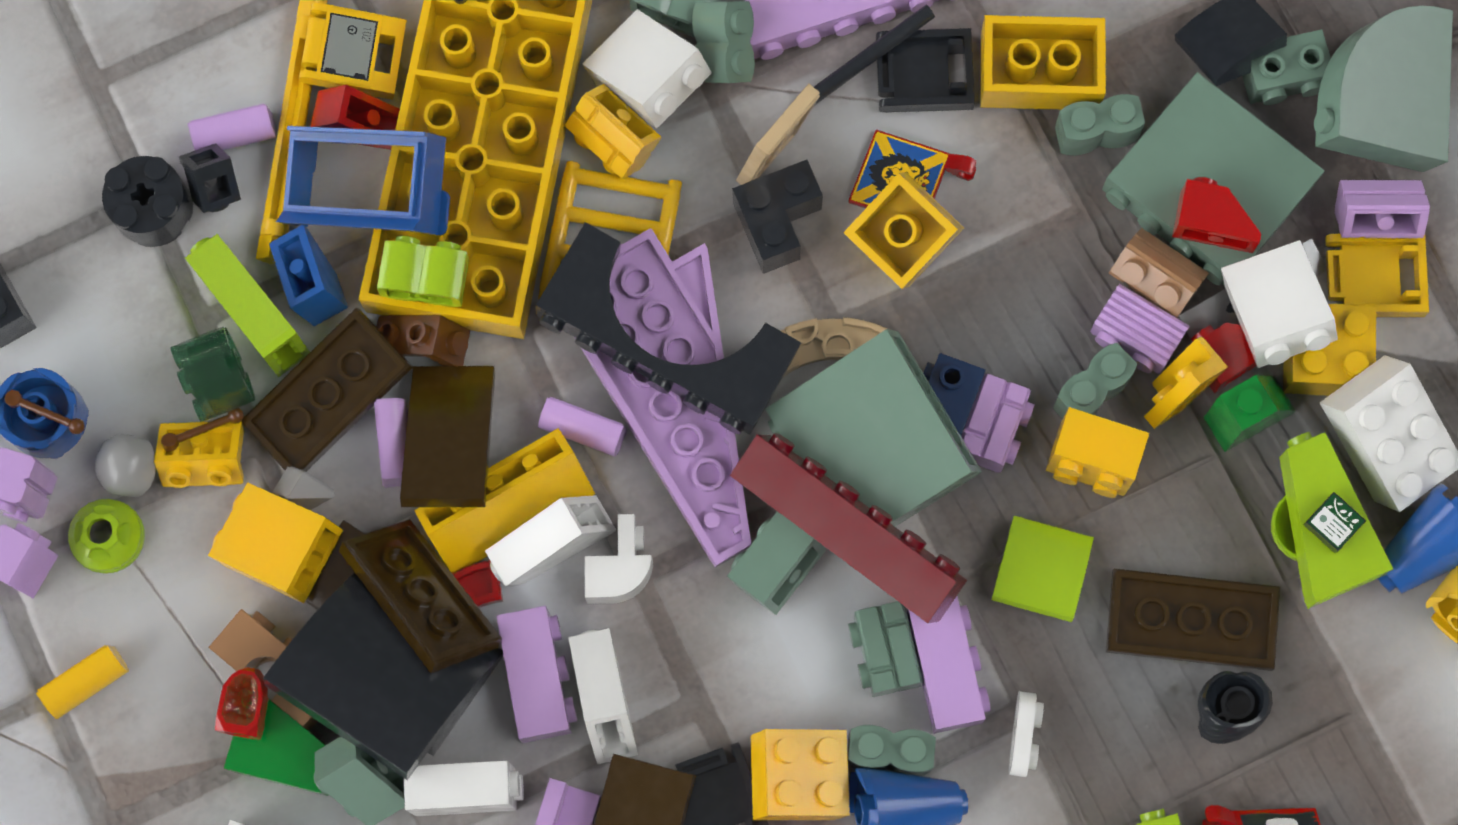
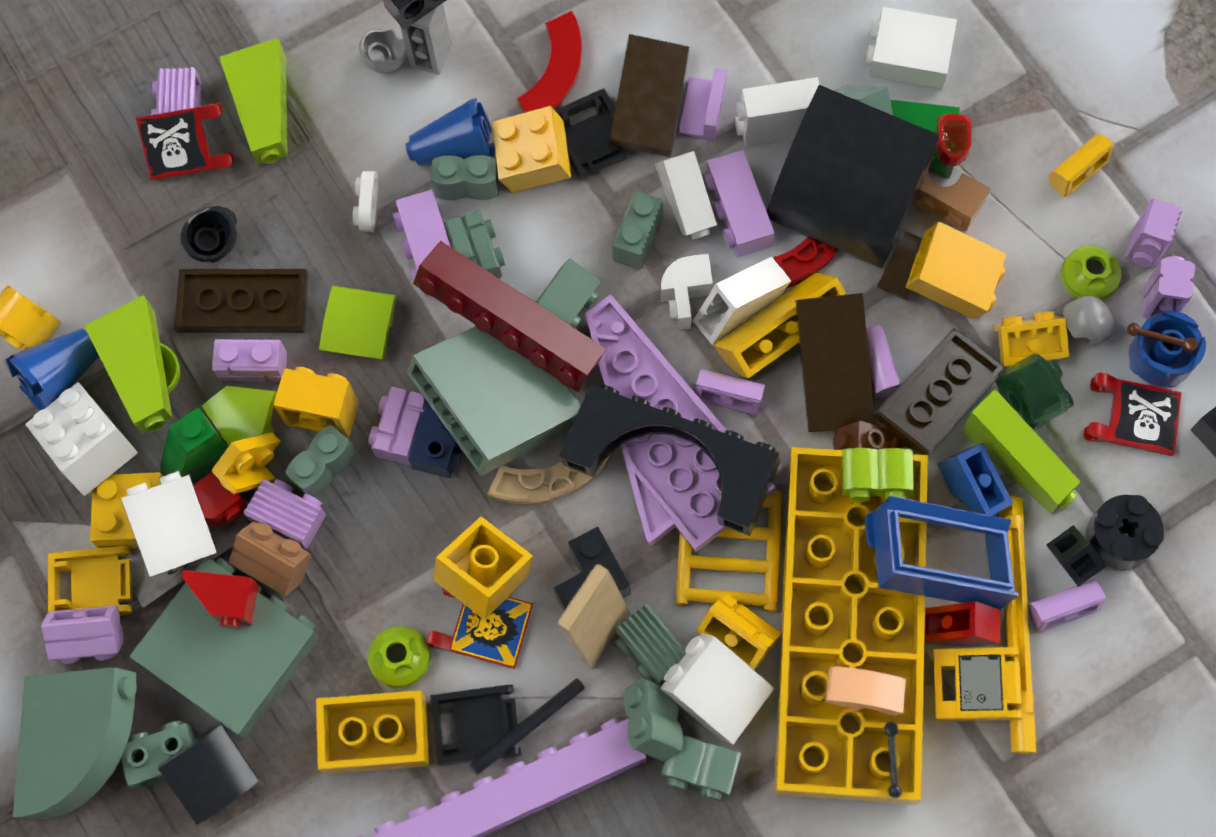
camera: 175 degrees right, 5 degrees down
(91, 345) = (1139, 417): none -> flag
(171, 441) = (1055, 337): reddish brown hinge -> none
(302, 488) = (944, 315): light grey slope -> none
(420, 595) = (835, 236): dark brown tile -> none
(480, 31) = (866, 689): none -> light nougat slope
(672, 649) = (637, 230): none -> sand green brick
(715, 131) = (649, 643): none -> sand green brick
(1004, 173) = (408, 671): none -> lime piece
(1110, 124) = (330, 679): sand green brick -> none
(1181, 526) = (249, 360): none -> lavender brick
(1192, 461) = (241, 412): none -> lime slope
(1334, 522) = (127, 351): tile -> none

